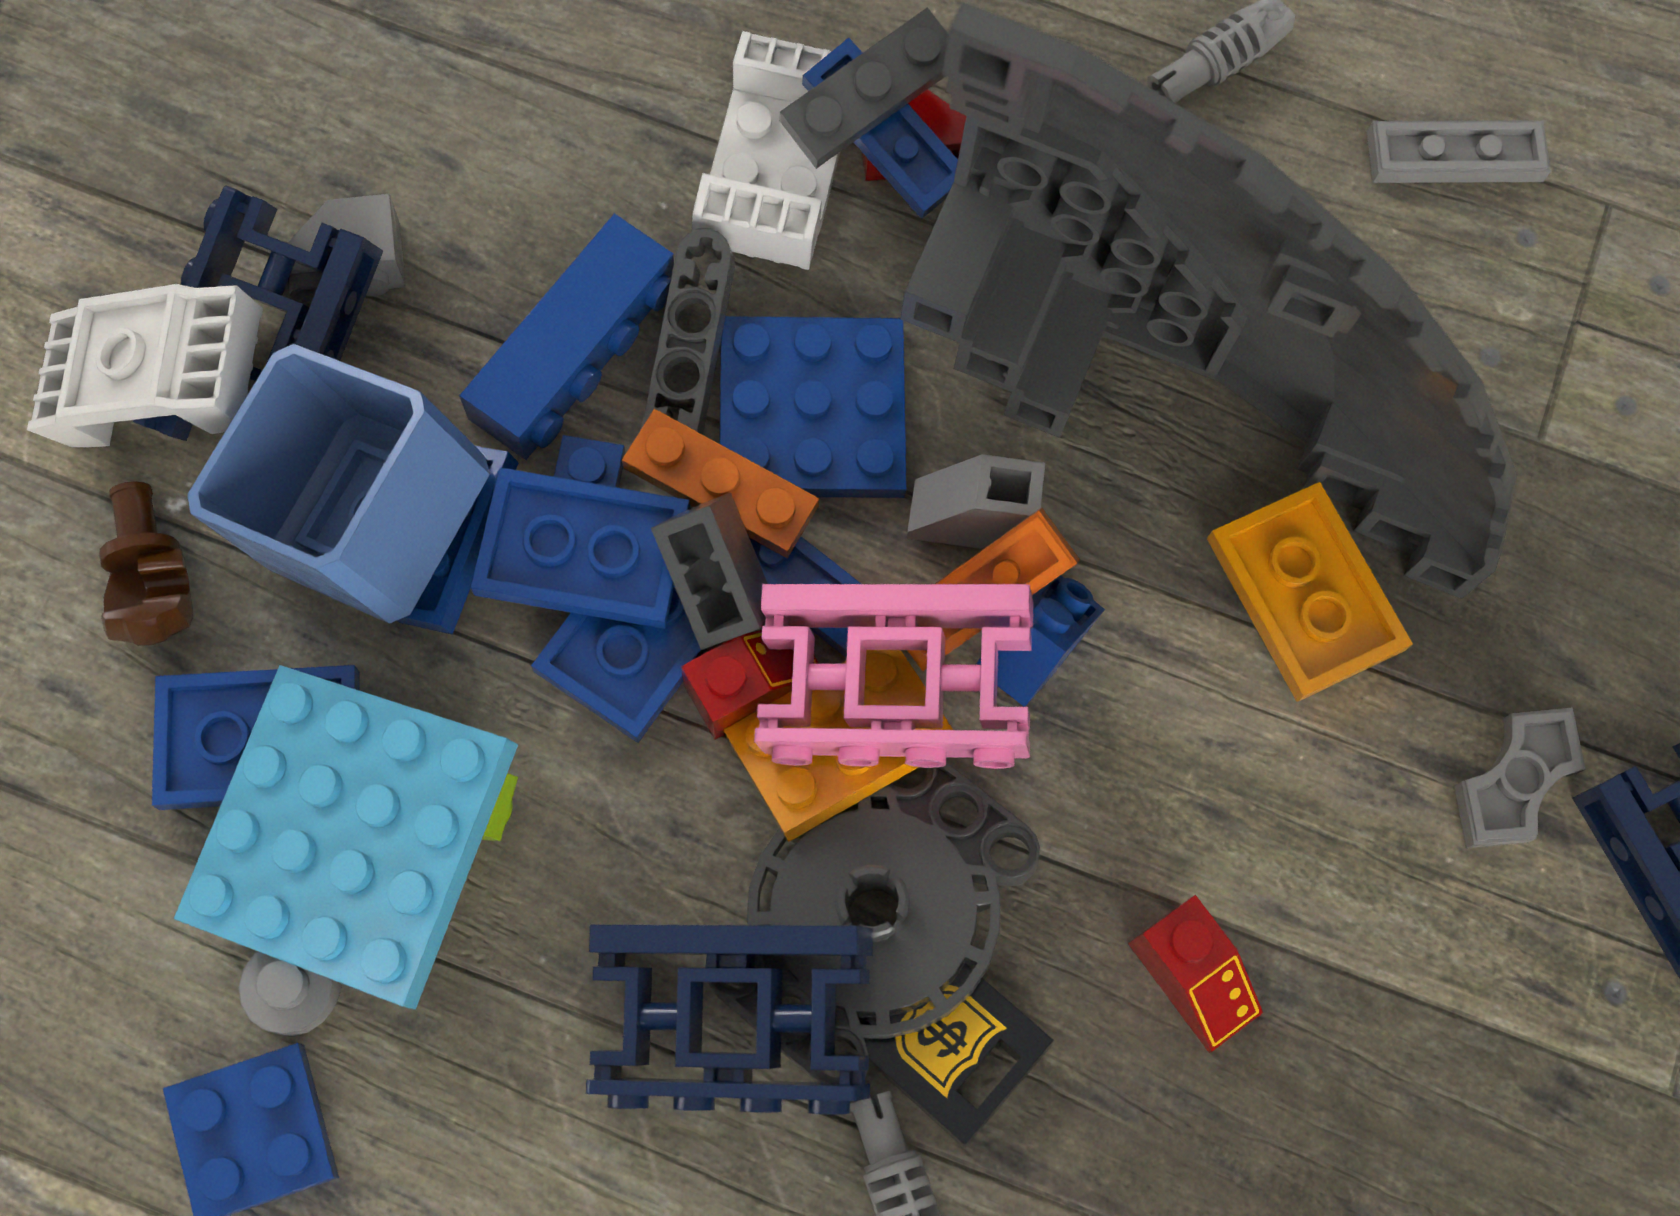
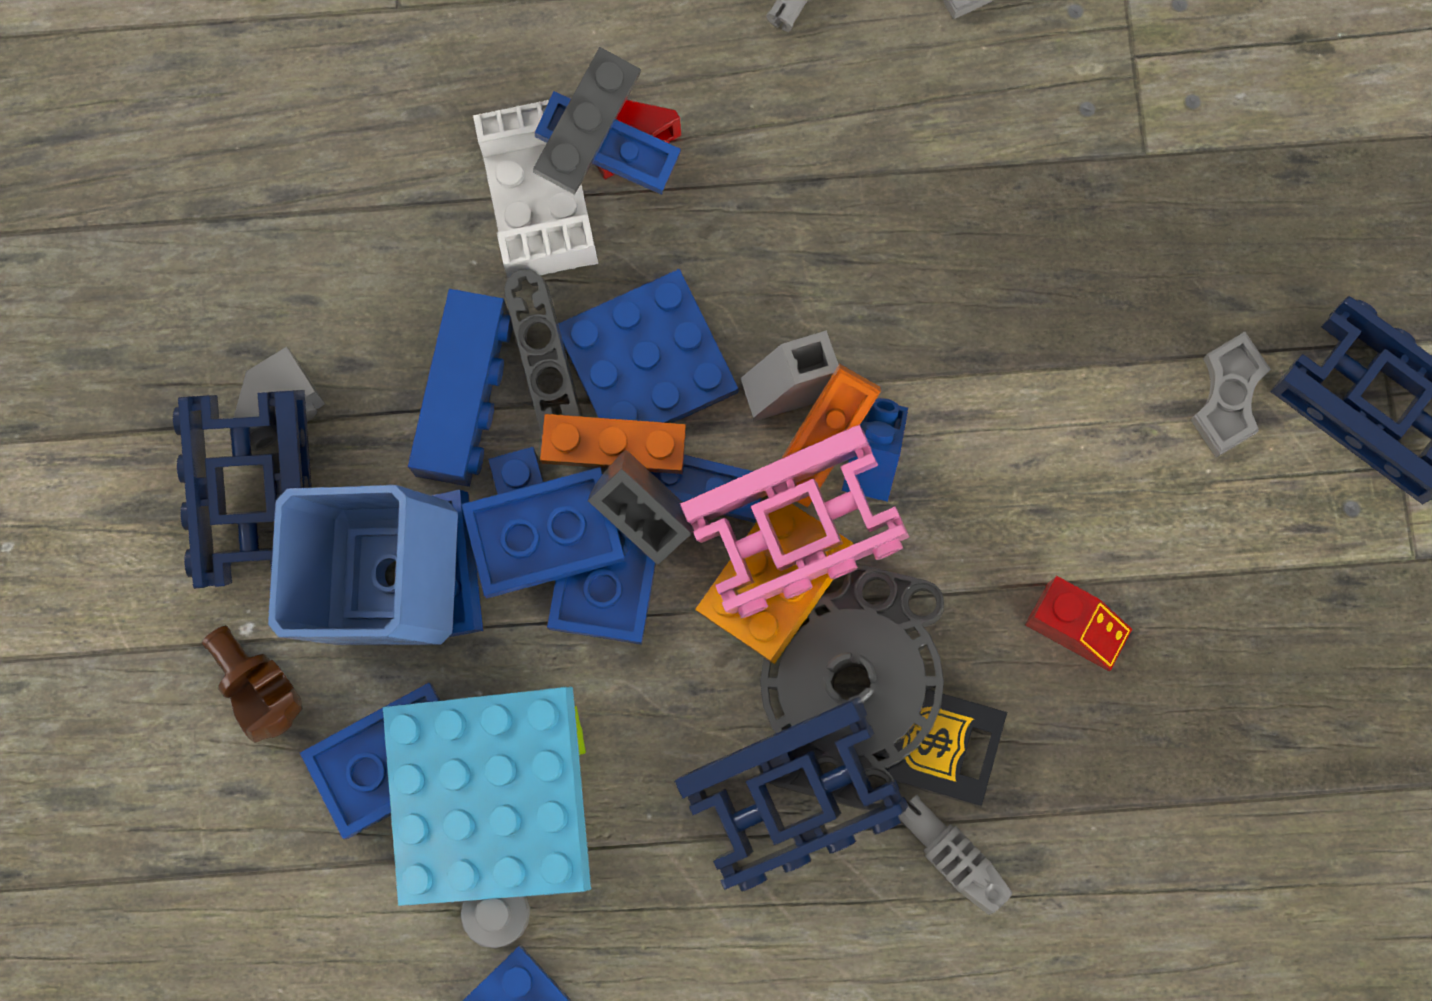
camera: 15 degrees left, 5 degrees up
(146, 358) = (183, 545): white plate -> none
(736, 678) = (691, 572): red slope -> none
(1137, 222) = (775, 161): dark grey panel -> none
(1308, 591) = (1037, 332): light orange plate -> none

